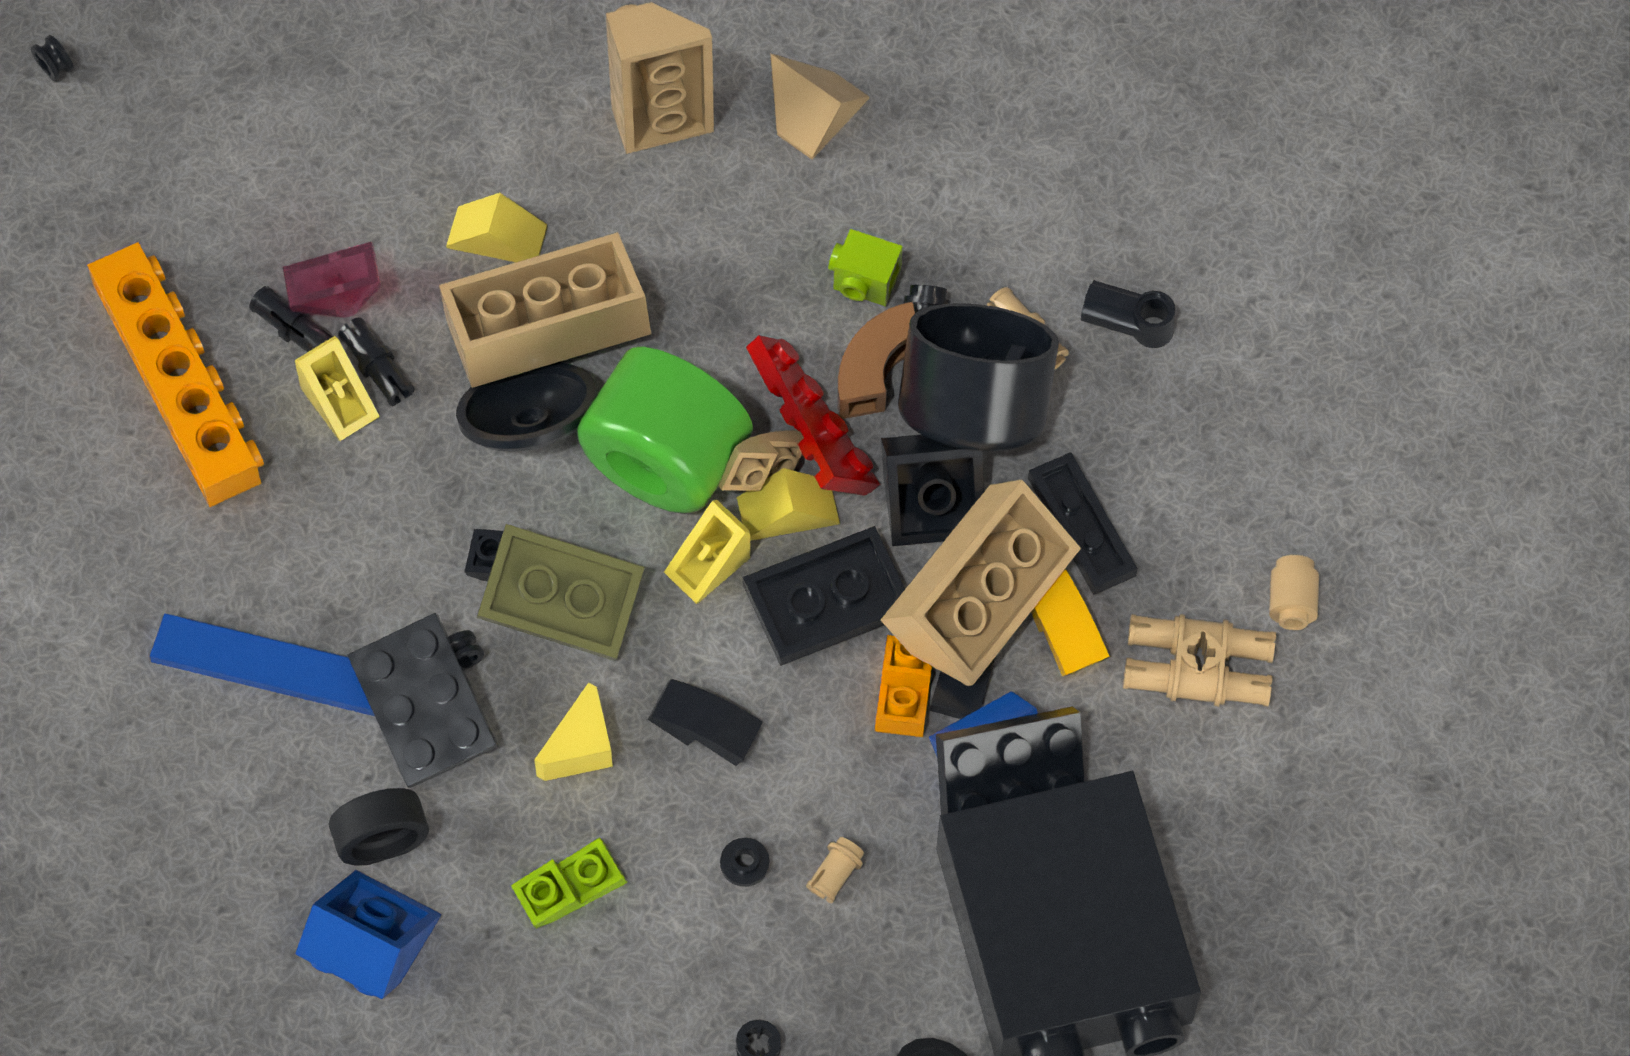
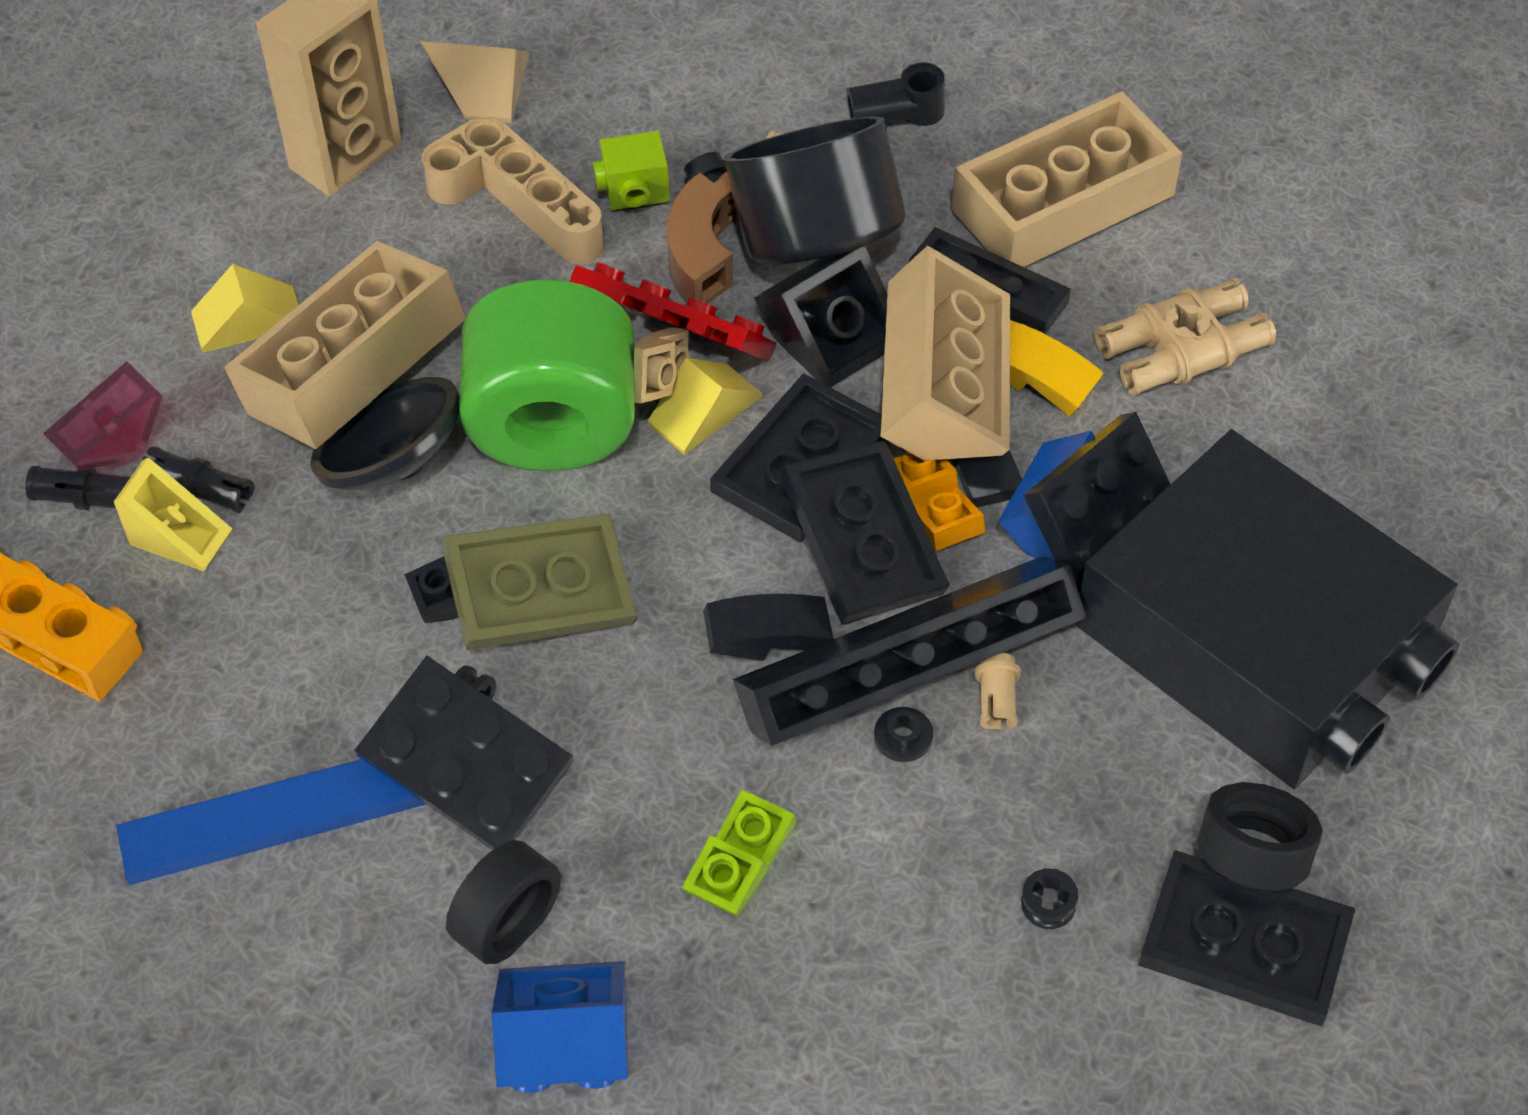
camera: 30 degrees left, 10 degrees down
(578, 742) = (659, 708): light yellow slope -> none
(710, 552) = (662, 471): light yellow slope -> none
(773, 239) = (495, 157): none -> tan beam
(788, 801) = (908, 649): none -> black brick
(823, 686) = (864, 531): none -> black plate
(1203, 470) = (1066, 181): none -> tan brick
(1294, 592) = (1220, 241): tan brick -> none

